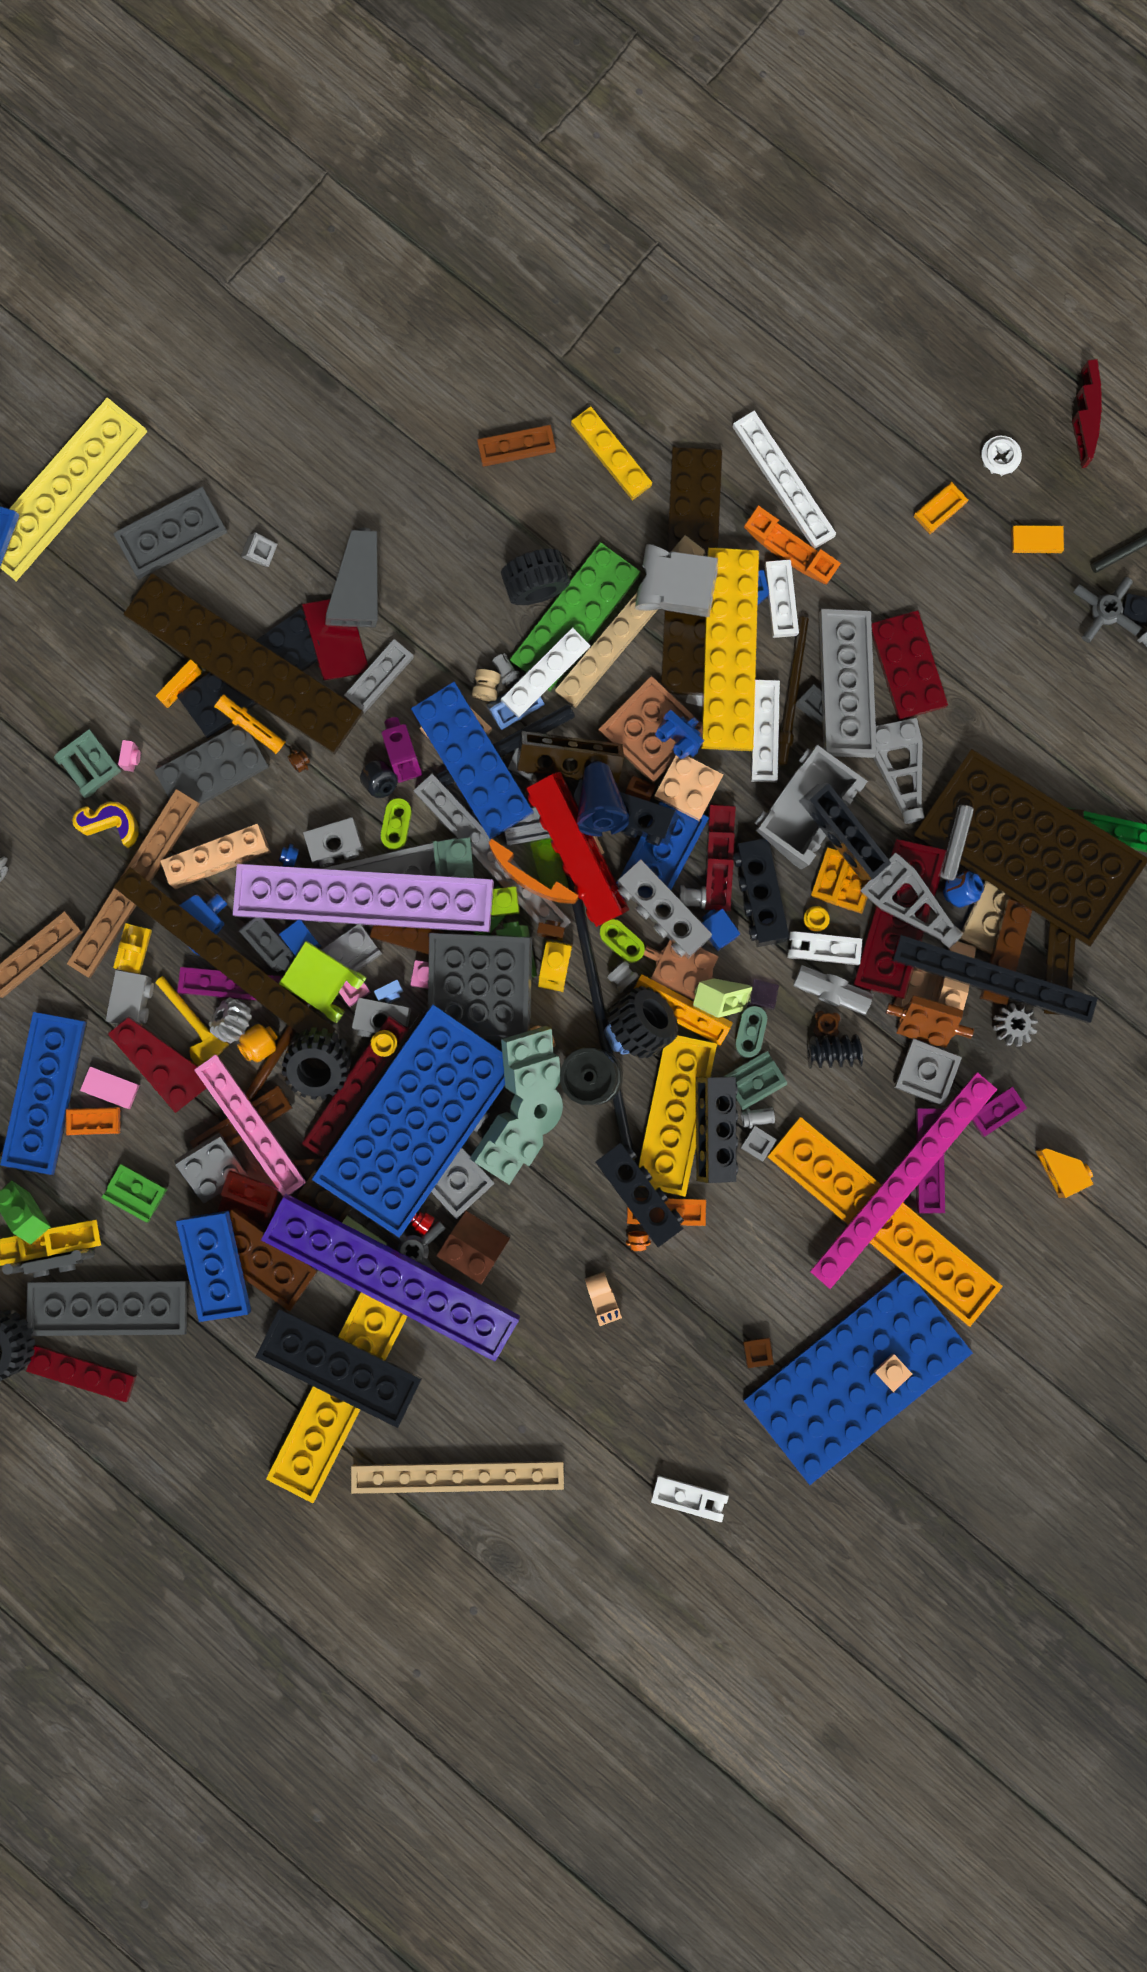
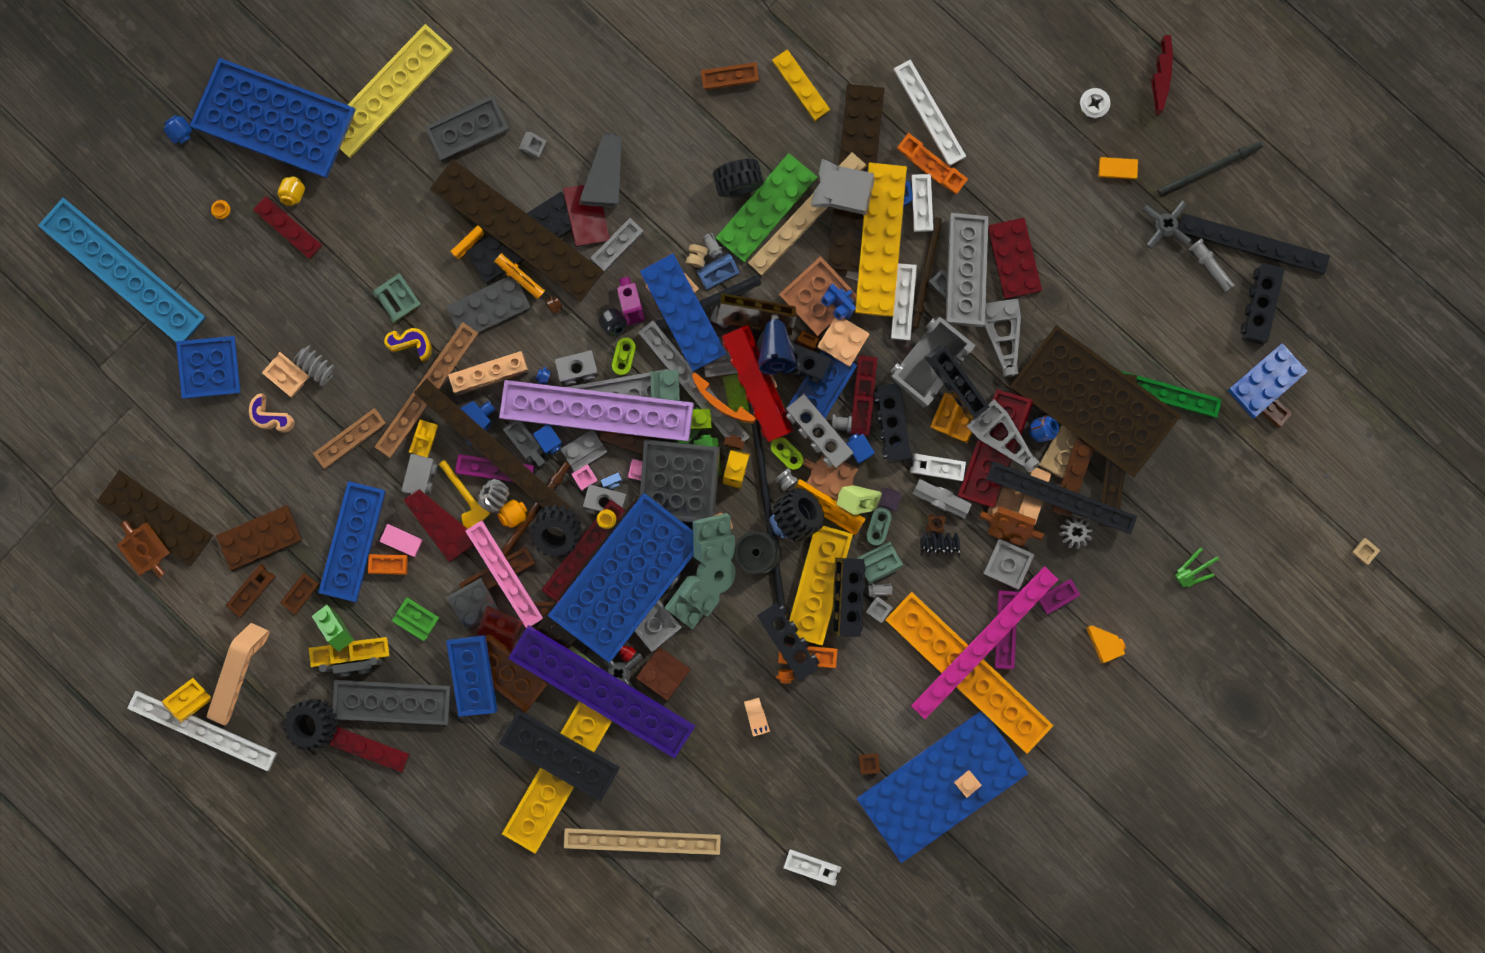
camera: 10 degrees right, 0 degrees up
(129, 756) = (428, 294): bright pink plate -> none
(319, 979) = (560, 469): lime flag -> none
(545, 672) = (741, 249): white plate -> none
(816, 918) = (933, 445): yellow plate -> none
(940, 508) = (1046, 140): light orange tile -> none
(957, 842) = (1040, 394): light grey axle -> none

